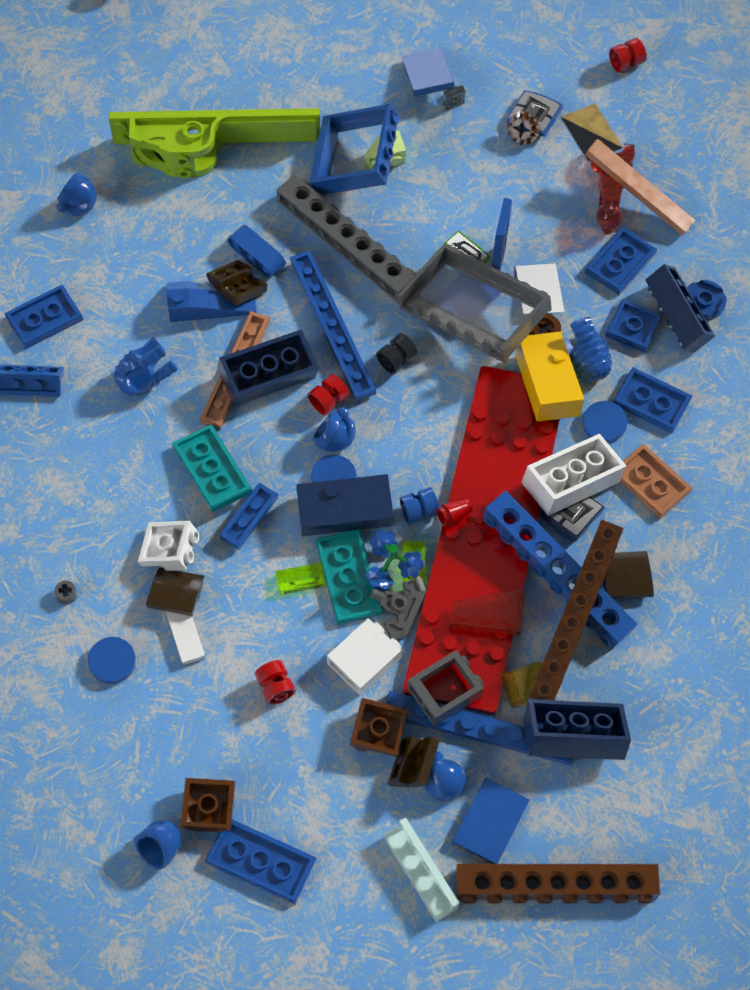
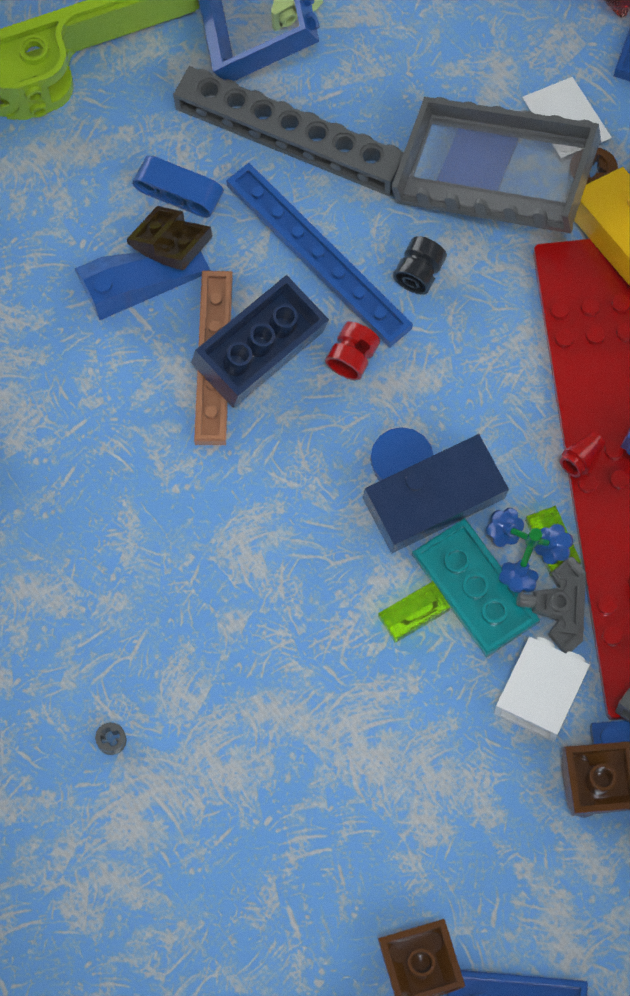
camera: 15 degrees left, 5 degrees up
(111, 660) = (210, 810): blue tile -> none
(136, 369) = (84, 405): blue hair -> none
(169, 545) = (224, 627): white plate -> none
(175, 591) = (257, 686): dark brown slope -> none
(186, 637) = (288, 733): white tile -> none
(212, 468) = (238, 502): teal tile -> none
(248, 516) = (313, 550): blue plate -> none
(275, 683) = (428, 762): red wheel -> none
(335, 432) = (381, 397): blue piece -> none
(419, 505) = (536, 457): blue wheel -> none
(467, 246) = (442, 87): tile -> none
(501, 234) = (502, 62): blue tile -> none

